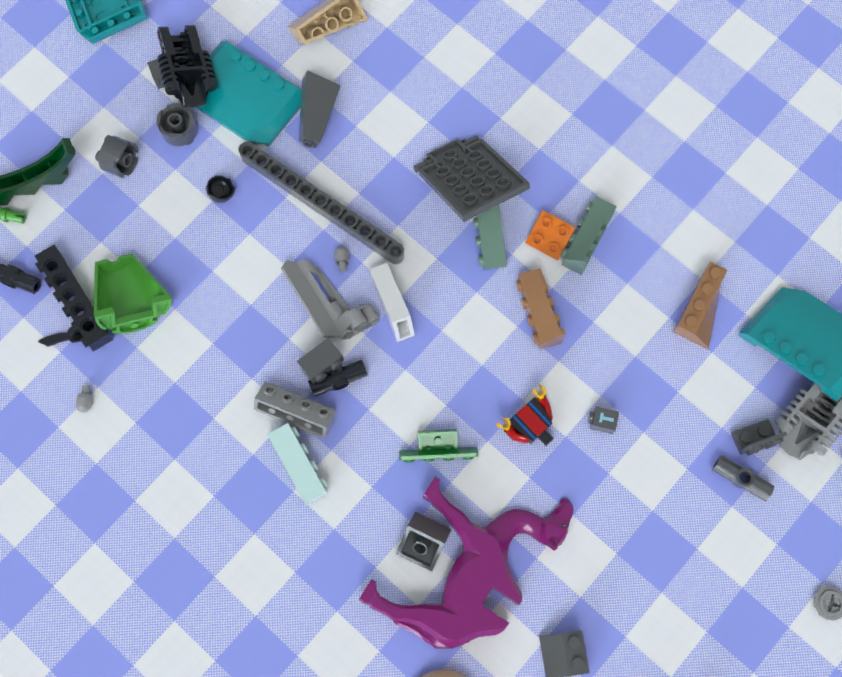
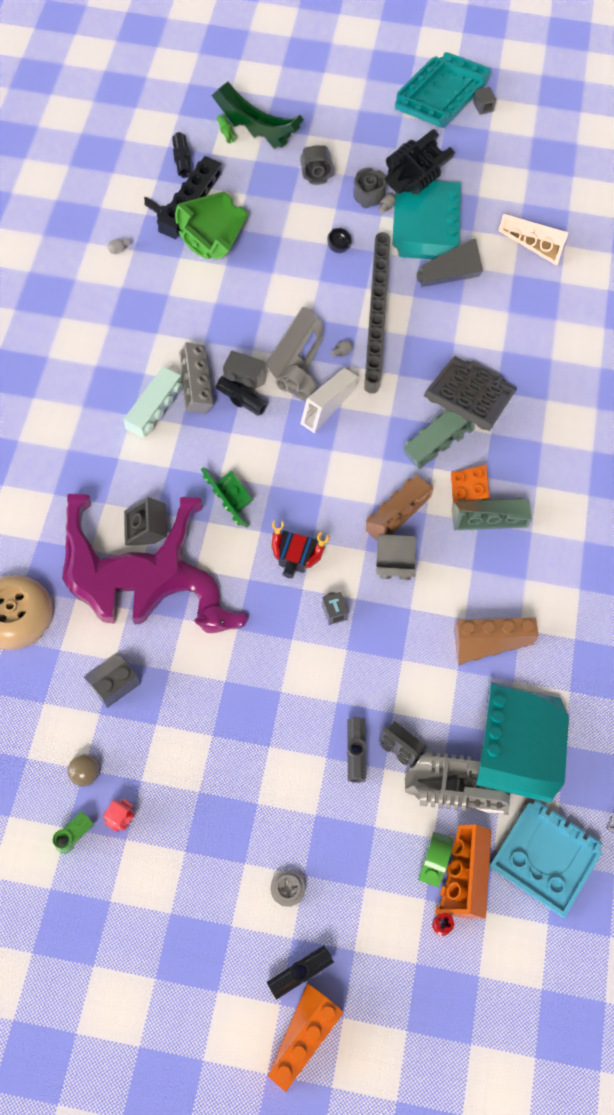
camera: 55 degrees right, 10 degrees down
(202, 120) = (387, 203): none -> light grey cylinder
(588, 340) = (396, 556): none -> bracket

